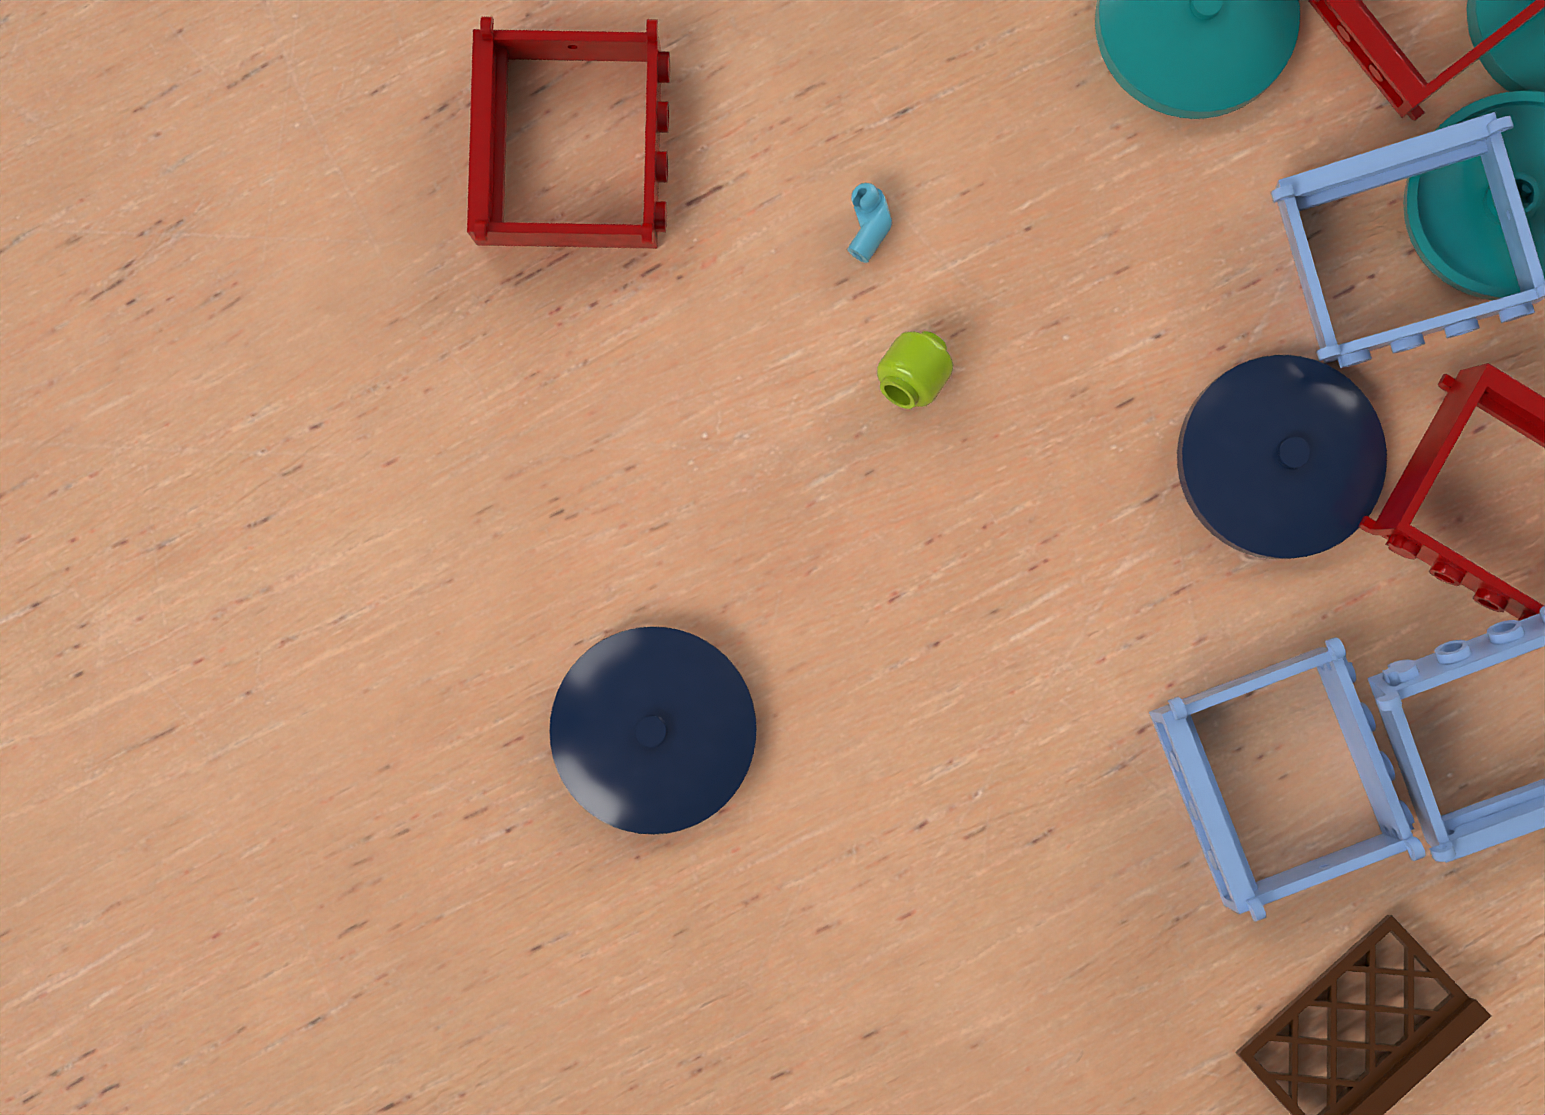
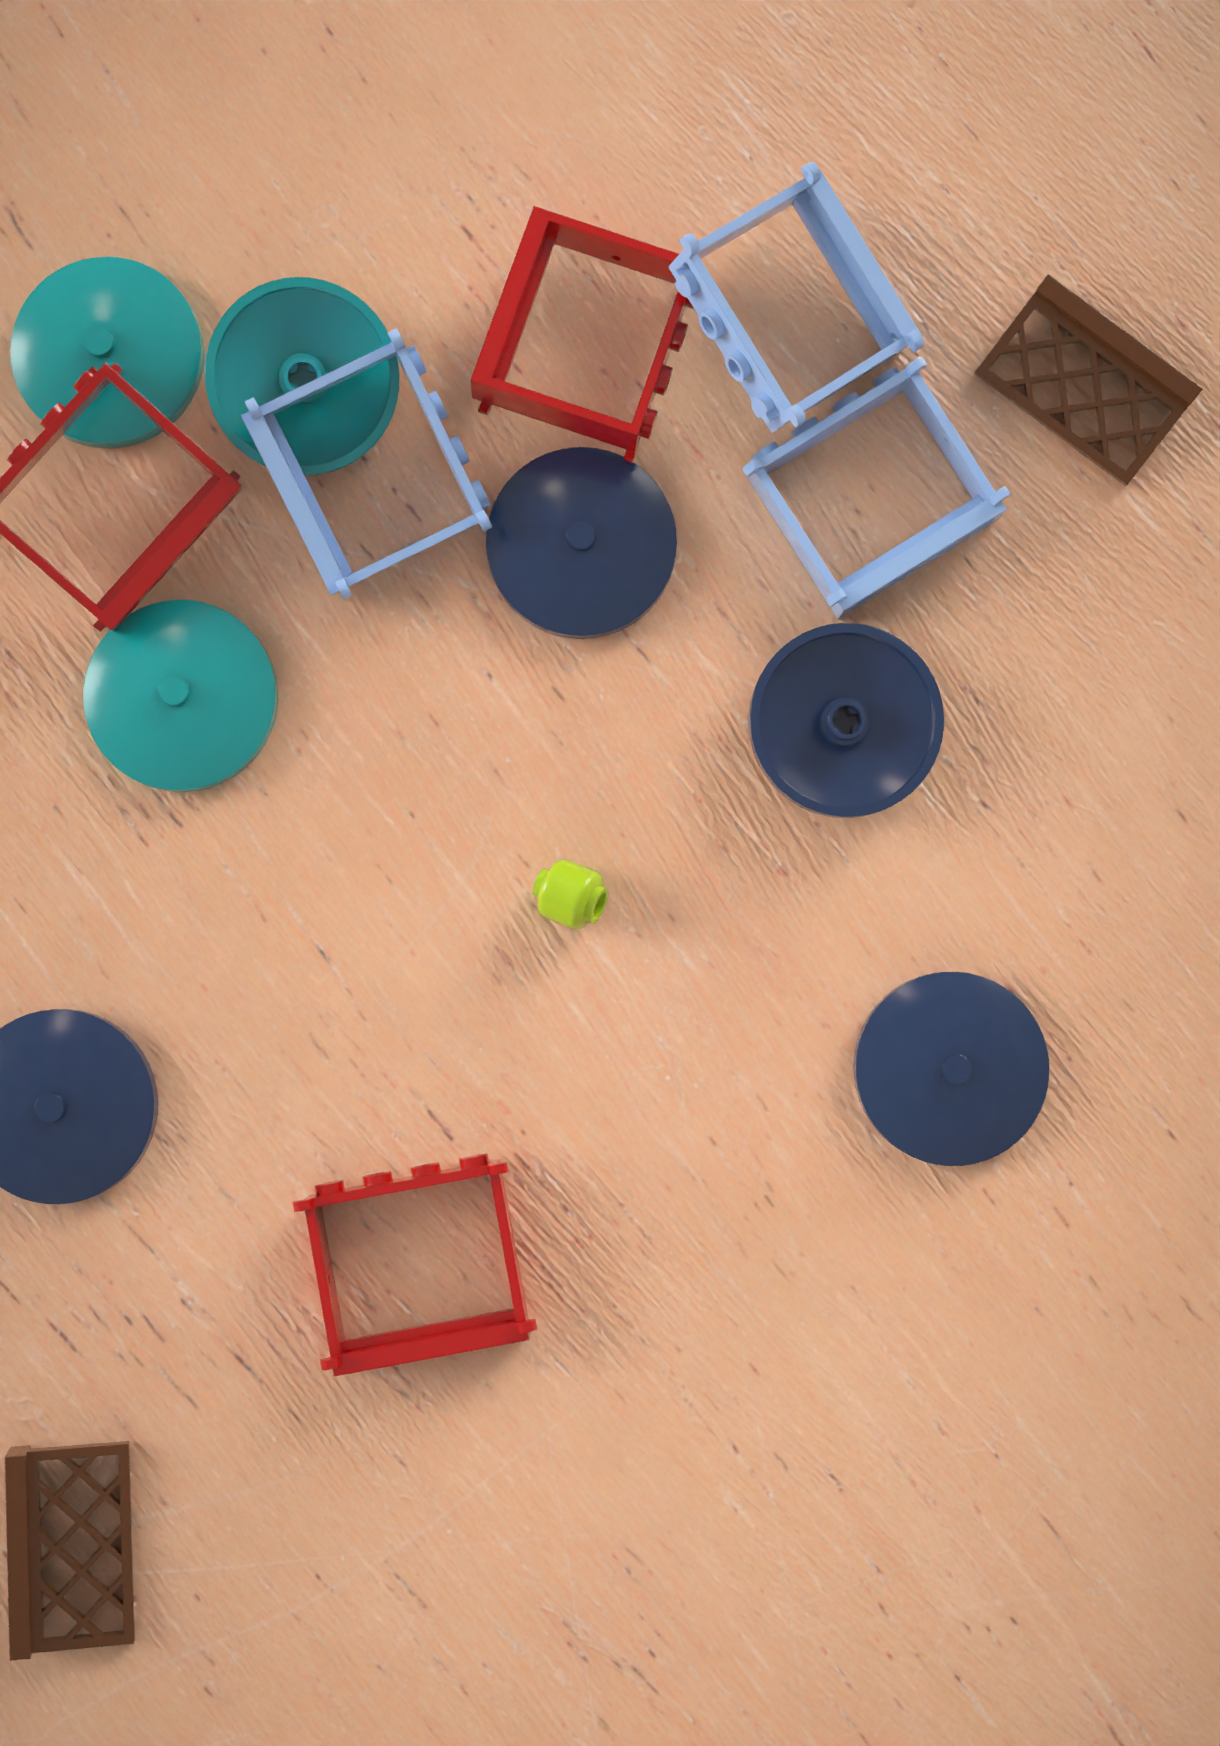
camera: 105 degrees left, 0 degrees up
(873, 220) = (434, 960): medium azure arm -> none
(1043, 693) = (846, 720): none -> dark blue dish

